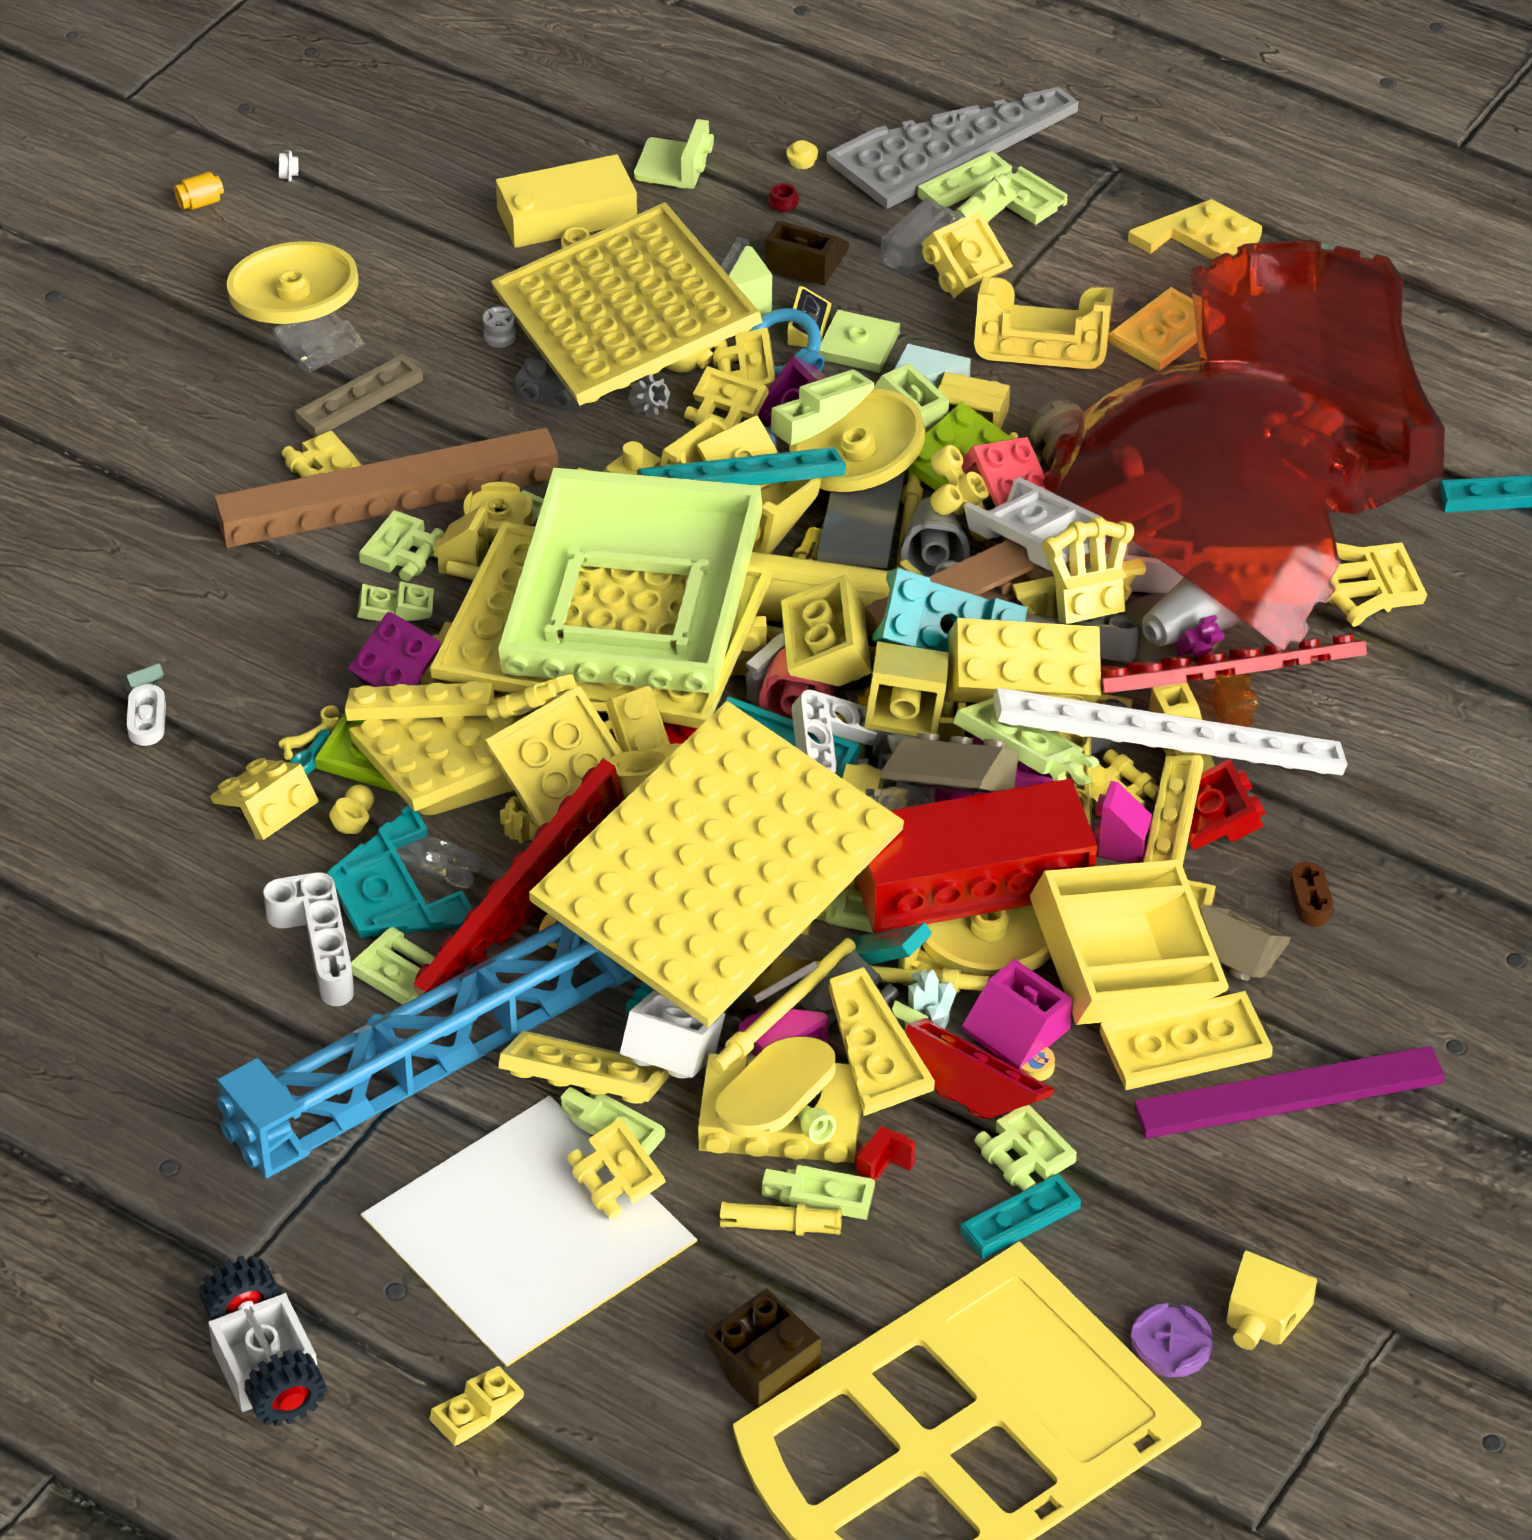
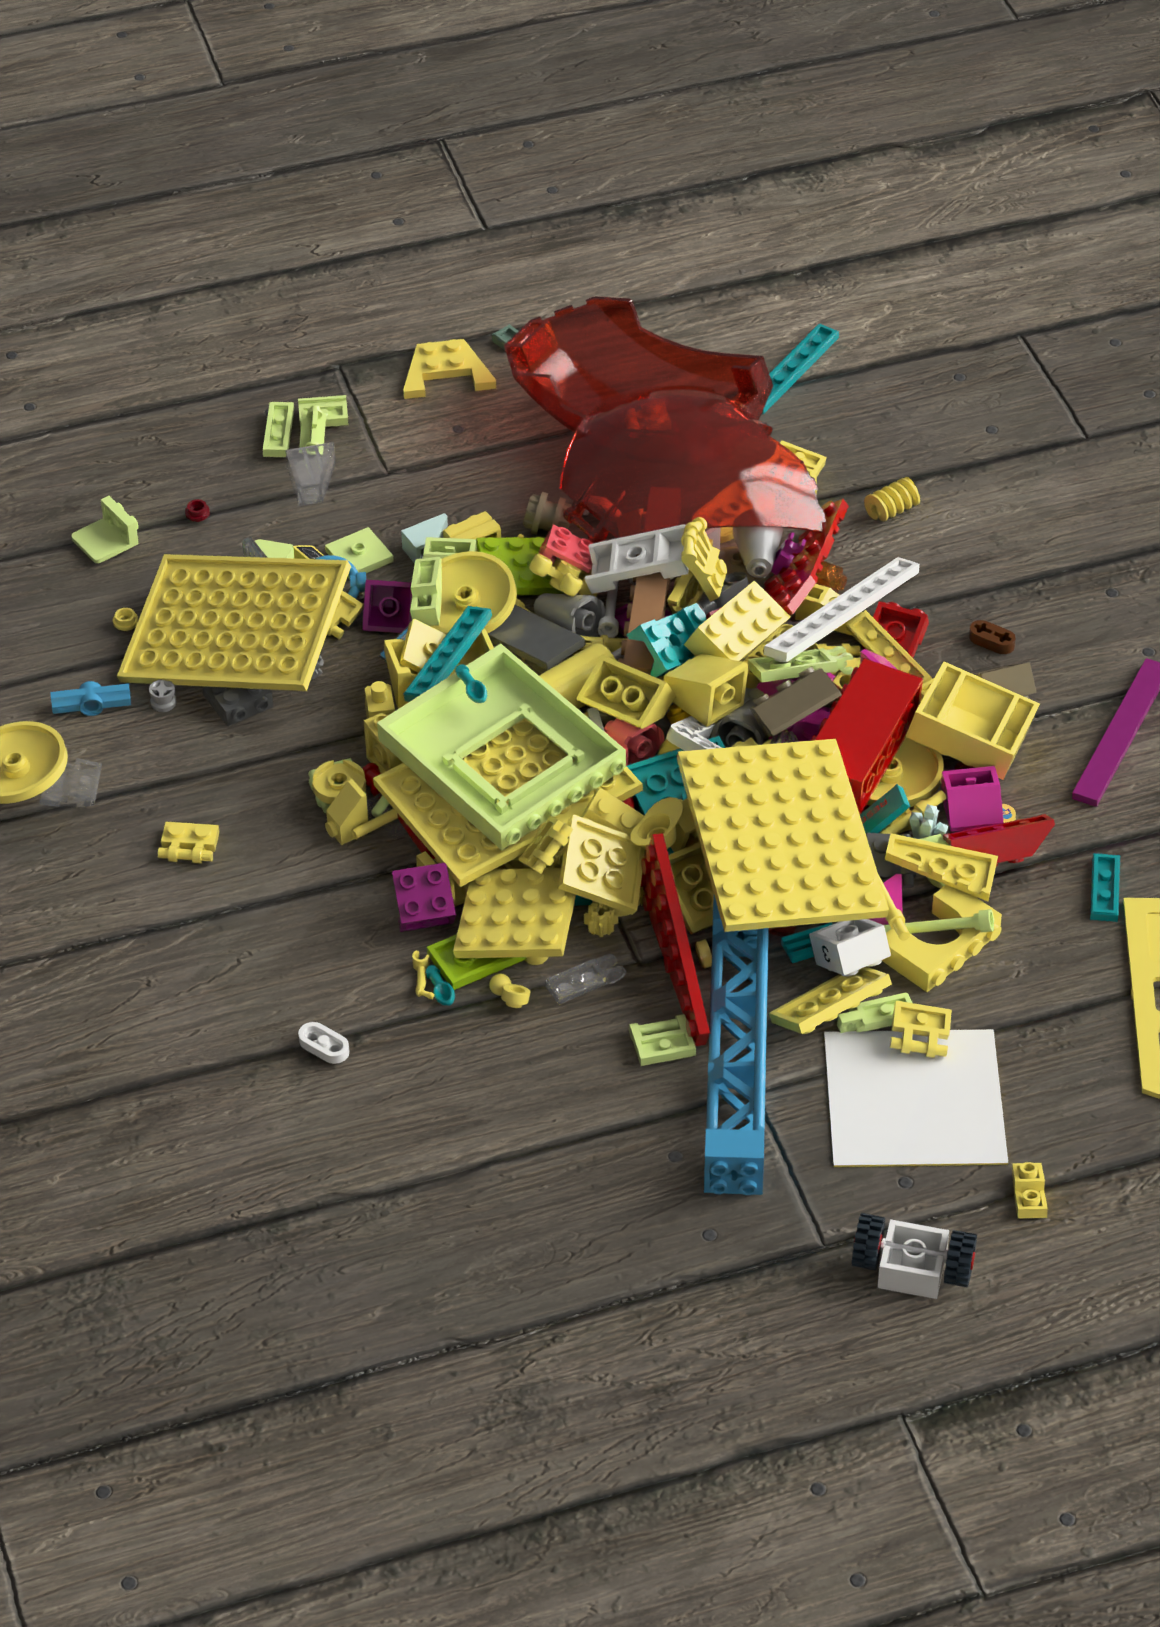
camera: 50 degrees left, 0 degrees up
(145, 676) = (291, 1026): tile -> none
(268, 794) = (451, 1019): light yellow bracket -> none
(314, 903) = (599, 1056): white beam -> none
(359, 395) = (148, 792): dark tan plate -> none
(380, 891) = (593, 1013): teal wing -> none
(383, 487) = (249, 826): medium nougat brick -> none
(392, 544) = (299, 848): yellowish green plate -> none
(408, 602) = (353, 876): yellowish green slope -> none
(419, 701) = (474, 903): light yellow plate -> none
(441, 282) = (90, 698): none -> dark azure piece
(578, 194) = (87, 601): light yellow brick -> none
(671, 504) = (474, 689): none -> teal piece
(728, 393) = (354, 628): light yellow plate -> none
(764, 1348) = (1111, 1040): dark brown slope -> none
(775, 1086) = (939, 921): light yellow tile -> none
(781, 1218) = (1024, 977): light yellow pin -> none
(802, 154) = (167, 481): light yellow plate -> none
(803, 252) = (266, 524): dark brown slope -> none
(820, 1190) = (1014, 955): yellowish green hinge -> none
(882, 1149) = (1013, 914): red bracket -> none
(898, 160) = (233, 428): light grey wing -> none
(965, 254) = (353, 464): light yellow plate -> none
(1033, 1140) = (1064, 849): yellowish green plate -> none
(1041, 333) = (461, 466): light yellow windscreen -> none
(1158, 330) = (497, 428): light yellow tile -> none
(1185, 1040) = (1049, 747): light yellow plate -> none
(1423, 685) = (892, 499): none -> light yellow piece

